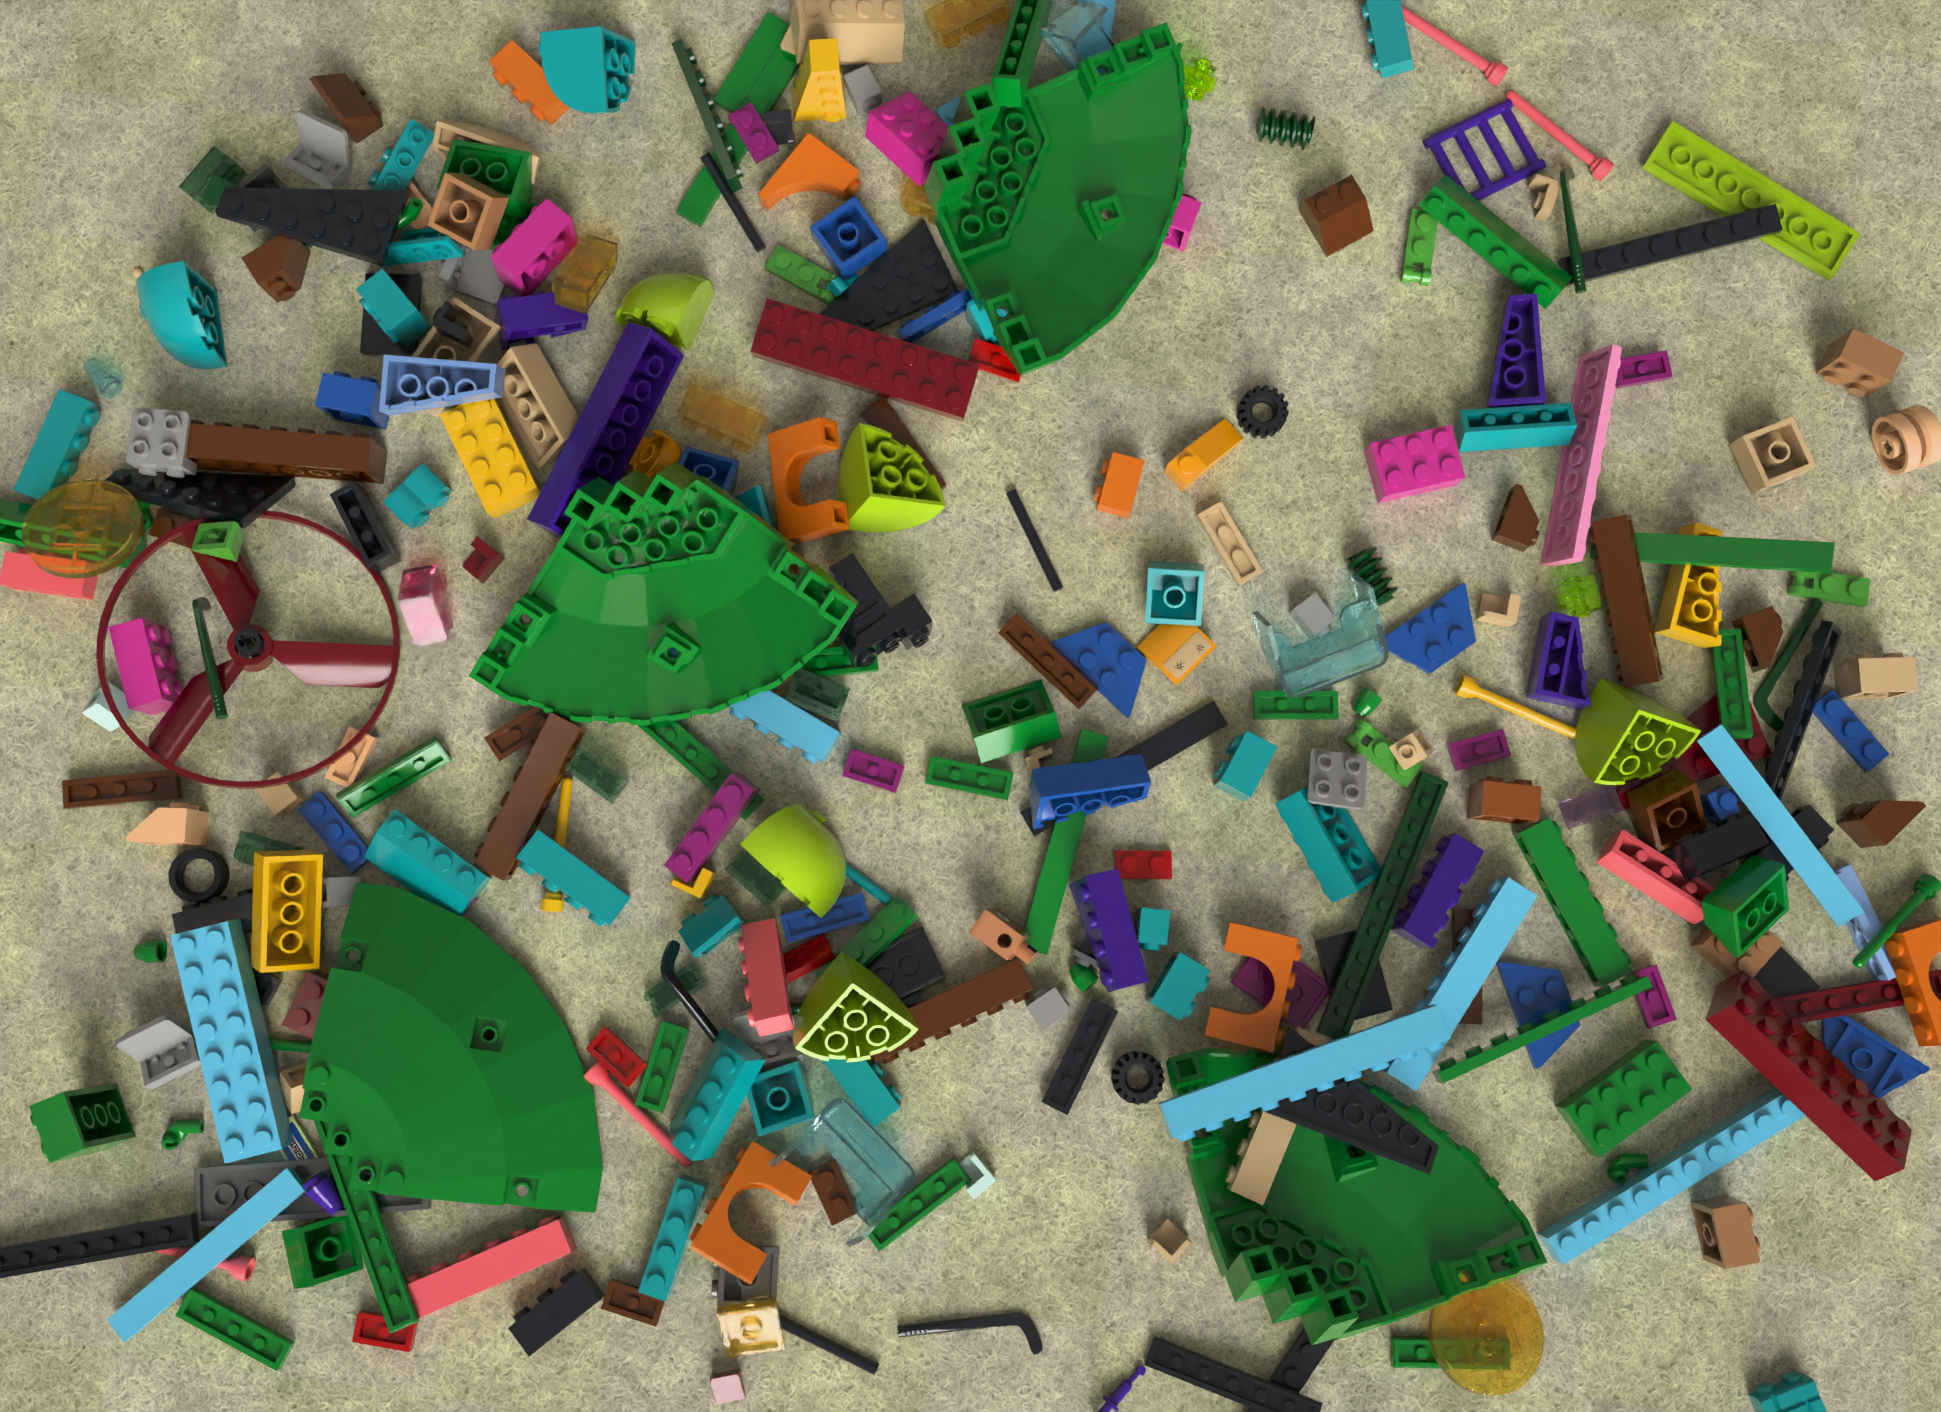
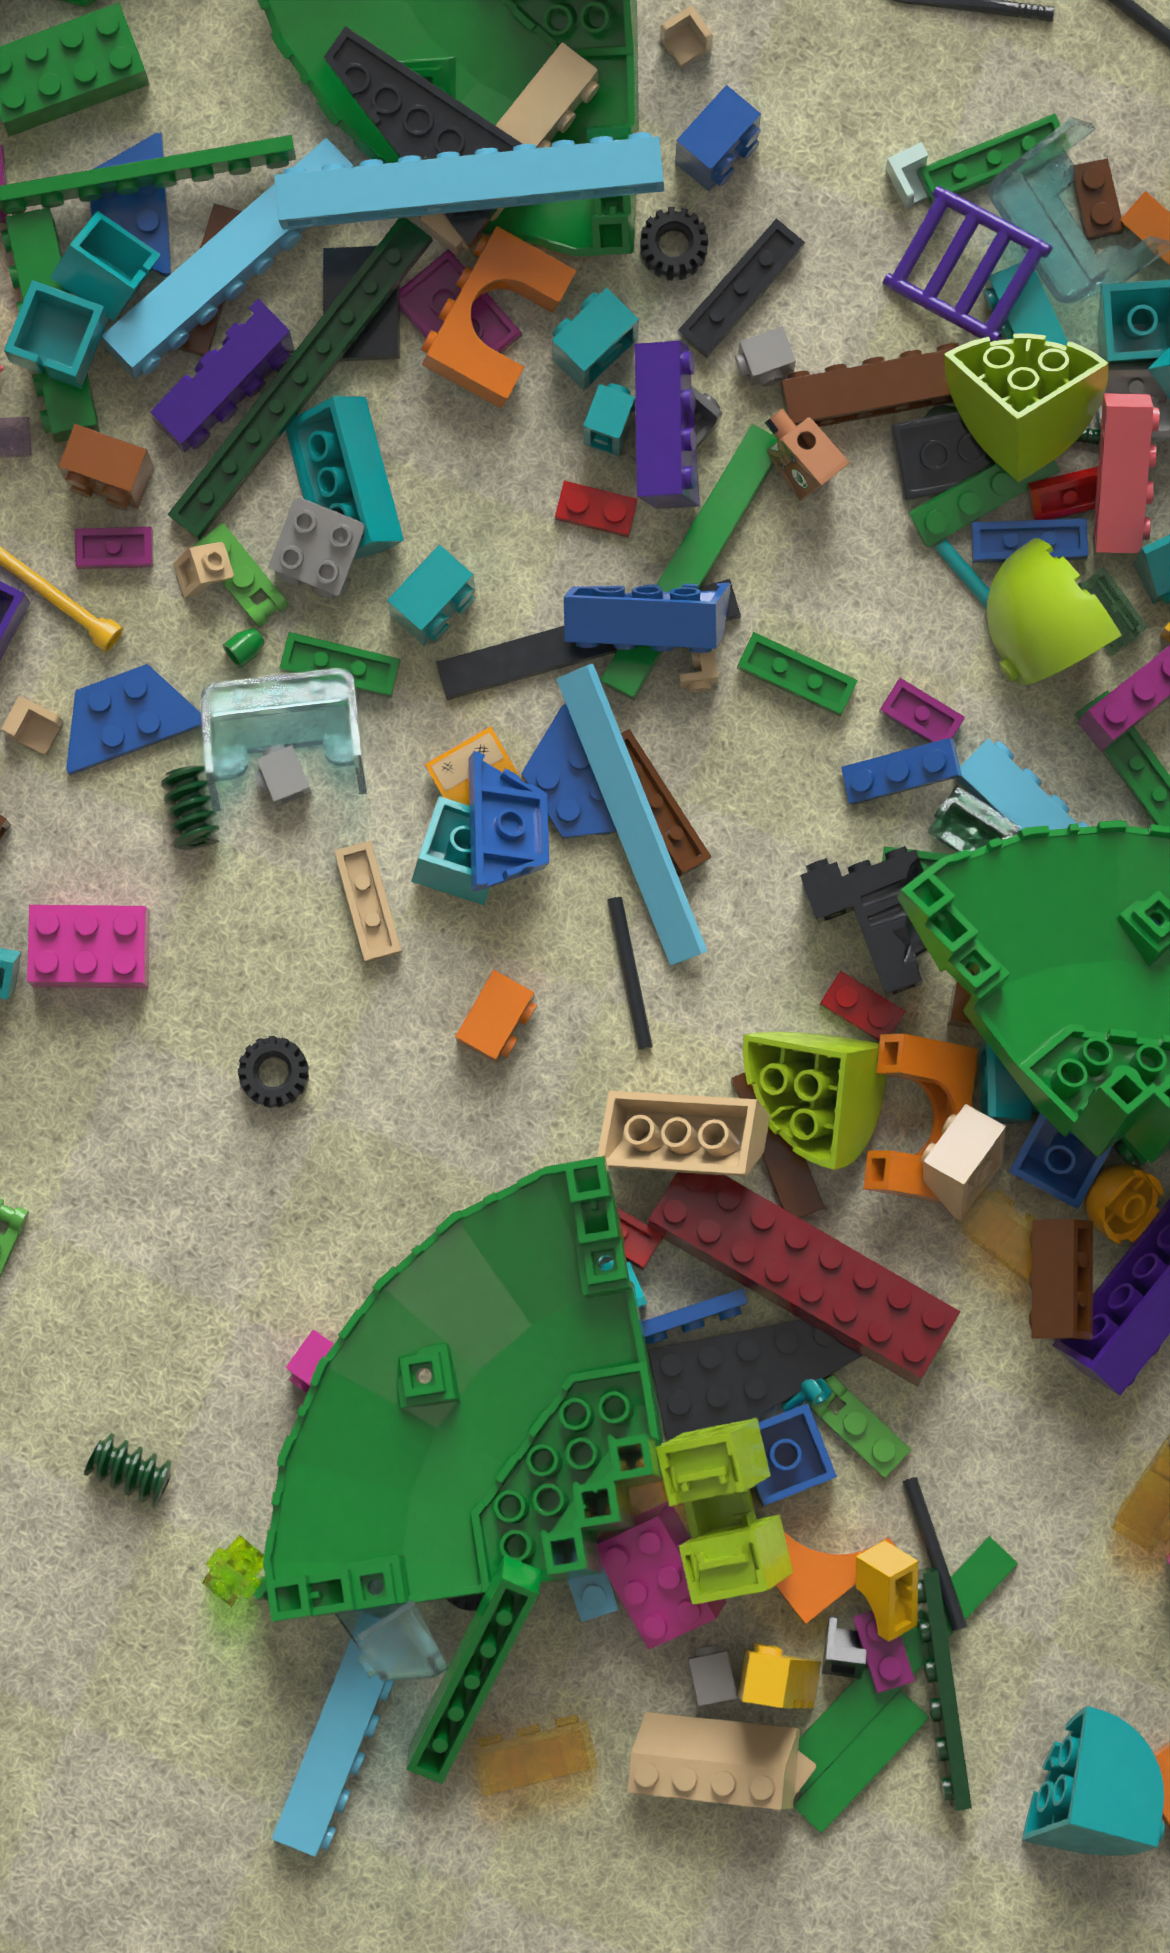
camera: 165 degrees left, 0 degrees up
(668, 305) = (1061, 1421): lime brick -> none
(685, 388) = (1061, 1279): none -> reddish brown brick
(758, 163) = (891, 1587): none -> yellow arch
(772, 456) = (964, 1159): none -> tan slope
(865, 156) = (713, 1478): none -> lime piece
(870, 555) = (862, 1006): none -> red plate
(878, 724) = (901, 771): none -> blue plate
(894, 1140) = (974, 216): none -> dark purple bar
(970, 423) = (683, 1133): none -> tan slope
(1011, 721) = (723, 735): green slope -> none
(1062, 645) = (631, 814): none -> medium azure tile
(1083, 977) = (712, 383): green hose -> none
(1125, 1163) = (718, 139): none -> blue brick
(1148, 612) = (505, 825): none -> blue wing
(1202, 454) = (369, 1033): light orange slope -> none
(1337, 215) = (91, 1323): reddish brown slope -> none
(1550, 950) = (105, 265): none -> teal piece
(1571, 887) = (56, 334): none -> teal piece

